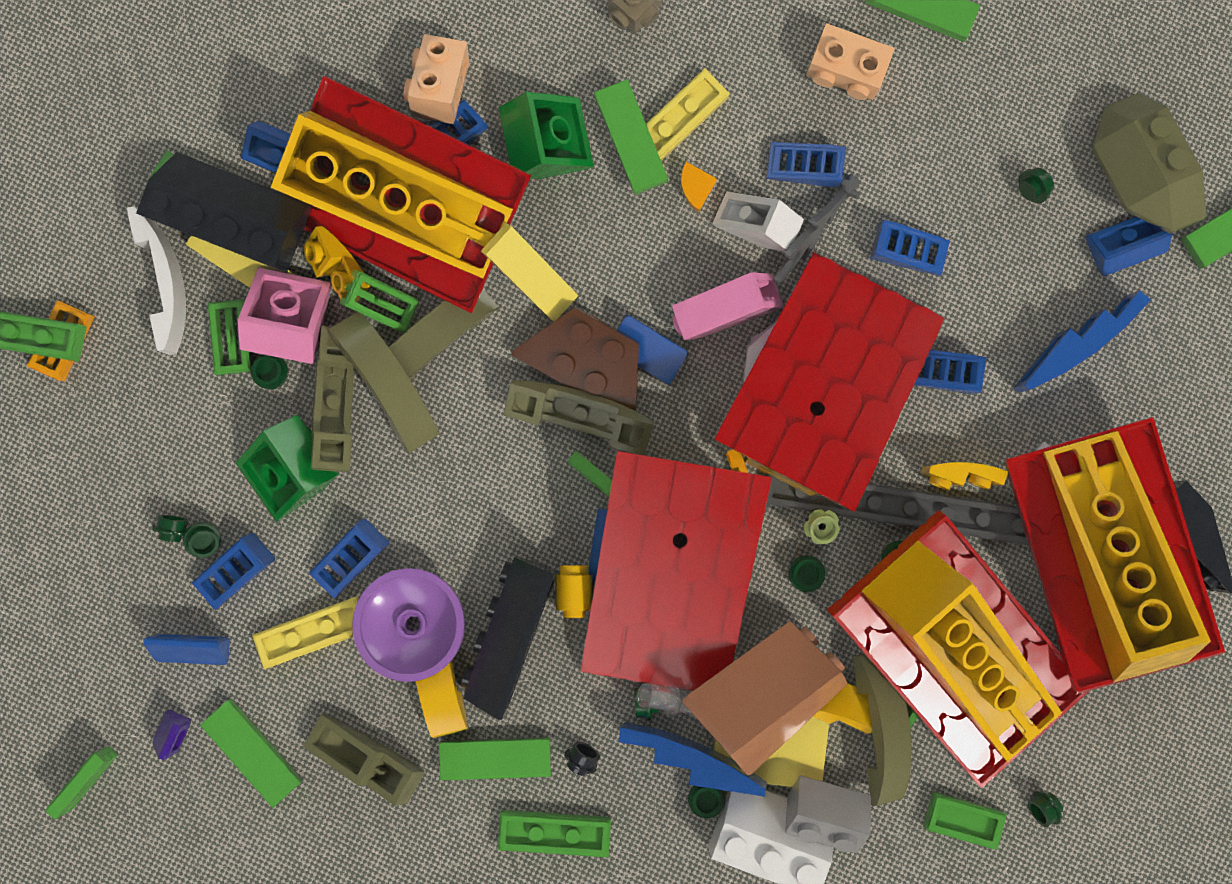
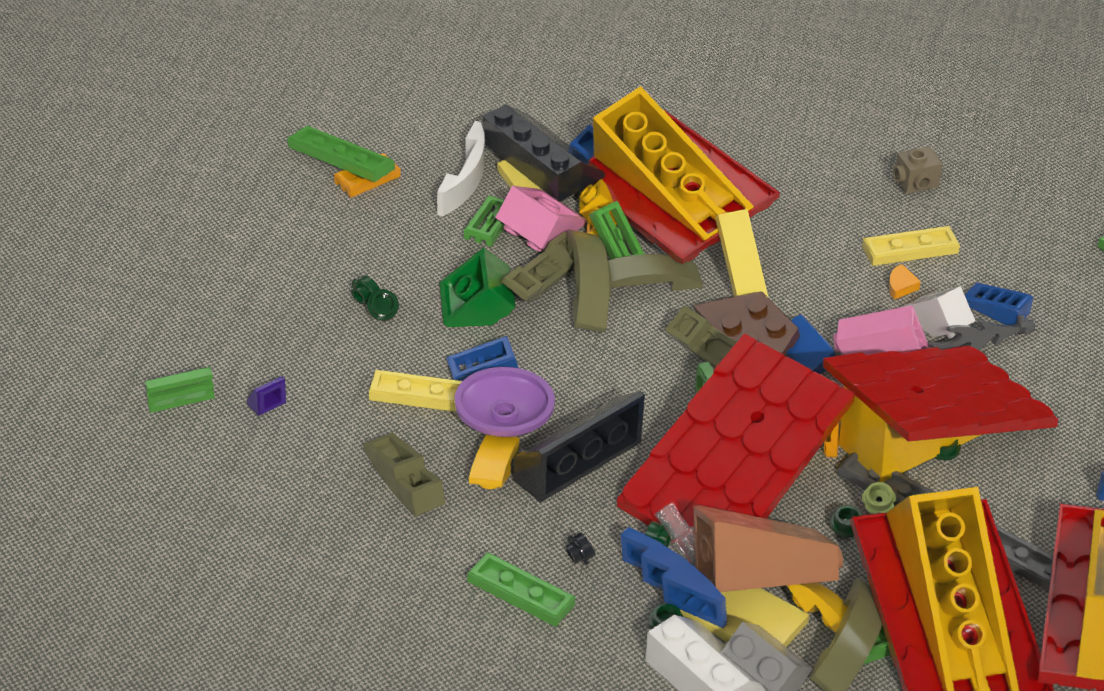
camera: 25 degrees right, 45 degrees down
(188, 648) = (322, 355): blue slope -> none
(250, 554) = (401, 331): blue slope -> none
(251, 752) = (318, 436): bright green tile -> none
(269, 372) = (505, 244): dark green plate -> none
(437, 78) = (749, 146): light nougat brick -> none
(495, 758) = (508, 522): bright green tile -> none
(546, 134) = (804, 209): green slope -> none
(574, 590) = (642, 444): yellow brick -> none
(631, 137) = (867, 233): bright green tile -> none
(849, 62) = (1065, 261): light nougat brick -> none
(902, 232) = (1044, 369): blue slope -> none
(955, 474) = (1016, 509): yellow slope -> none
(976, 372) = (1050, 458): blue slope -> none

